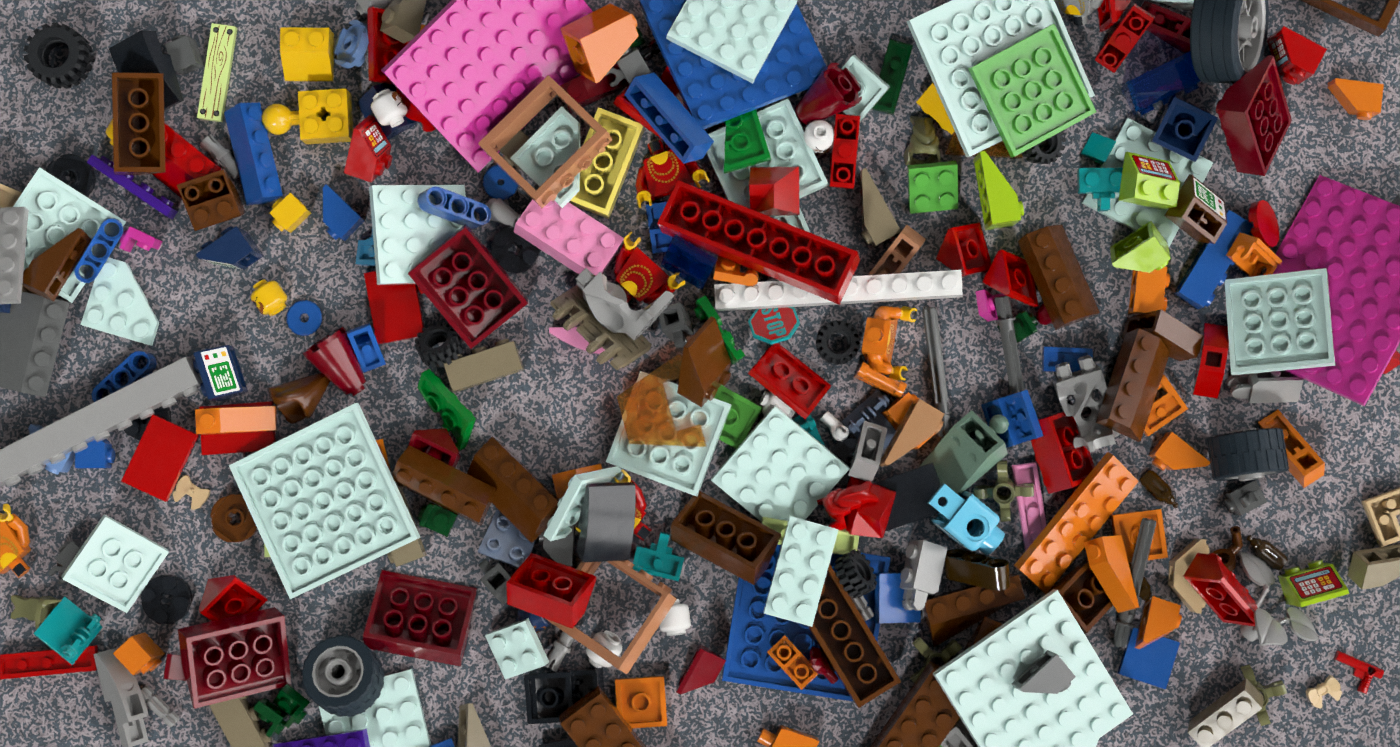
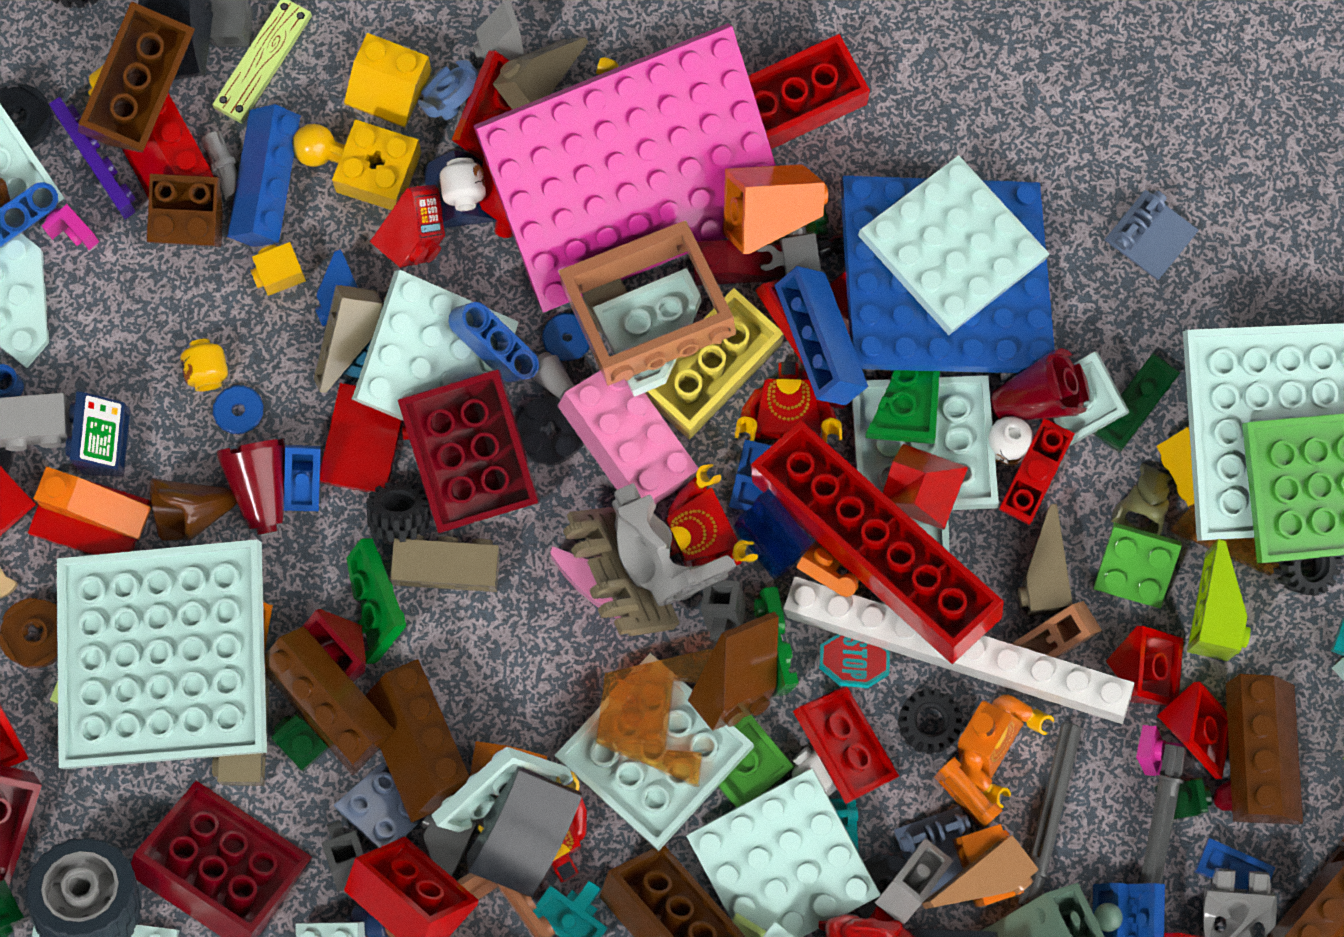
camera: 20 degrees right, 10 degrees down
(232, 249) = (182, 284): dark blue slope -> none
(355, 238) = (347, 332): none -> dark tan slope
(836, 428) = (884, 838): white arm -> none

